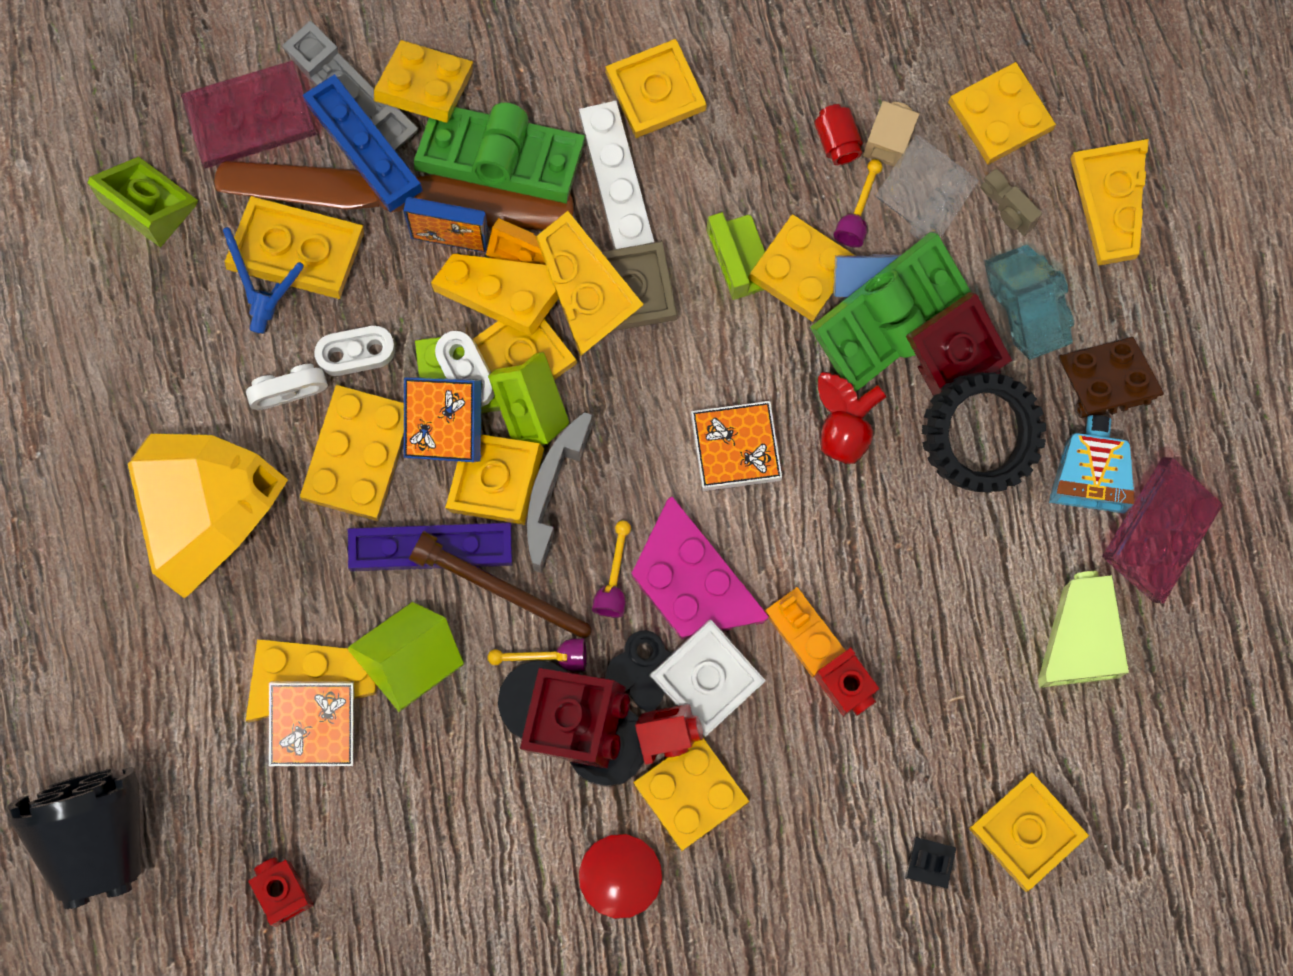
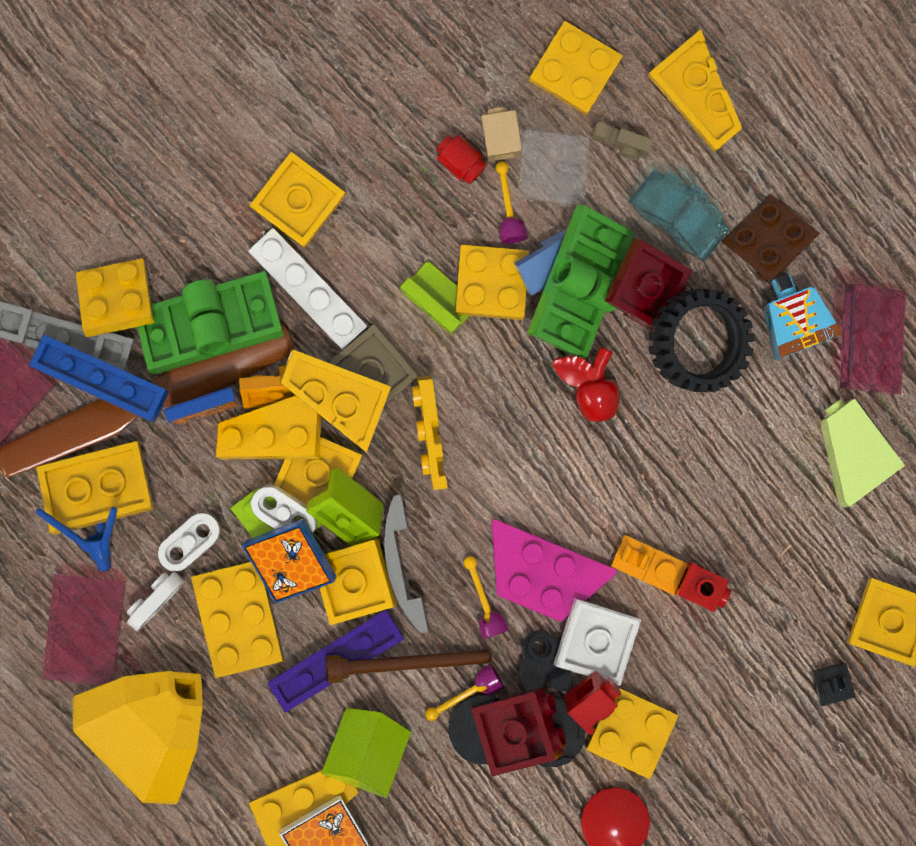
camera: 30 degrees left, 10 degrees up
(200, 375) = (83, 629): none -> clear pink plate
(656, 369) = (428, 431): none -> yellow wing
(736, 446) = (519, 451): tile -> none

